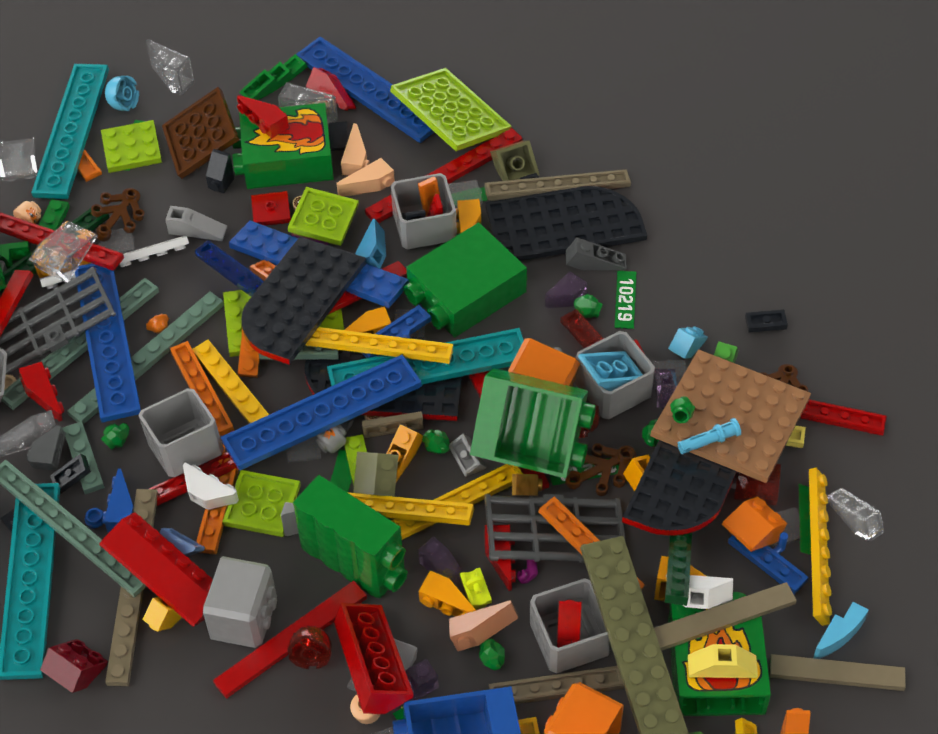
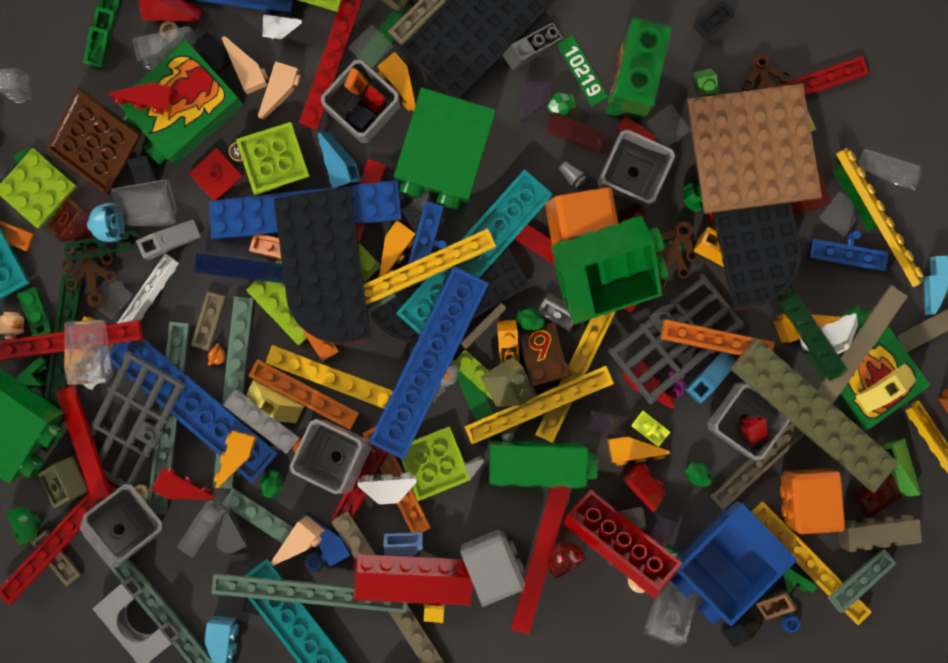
camera: 35 degrees left, 35 degrees up
(71, 472) = (267, 542): black plate -> none
(95, 484) = (302, 537): none -> light nougat slope
(107, 385) = (238, 451): none -> light orange slope
(139, 177) = (70, 221): none -> clear red slope
(140, 204) = (103, 249): none -> dark green beam
(147, 362) = (260, 420): none -> light grey arch
(160, 183) = (106, 222): none -> medium azure cylinder
(169, 376) = (274, 403): none -> light yellow slope
(175, 297) = (208, 321): none -> dark tan tile
(201, 192) = (146, 204): none -> clear slope
(405, 140) = (280, 23): none -> slope
(425, 476) = (544, 355): none -> reddish brown slope
(432, 626) = (644, 486): none -> red slope
(478, 626) = (675, 464): nougat slope -> none
(526, 484) = (633, 323): pearl gold slope -> none
(556, 575) = (710, 377): none -> dark azure slope
(610, 368) = (637, 172): medium azure slope -> none
(664, 386) = (682, 149): clear purple slope -> none
(666, 297) = (638, 70): none -> green brick
(682, 409) = (723, 180): green rock -> none
(687, 341) = (667, 87): medium azure slope -> none
(718, 433) = (763, 184): medium azure pin -> none
(755, 524) = (826, 236): orange slope -> none

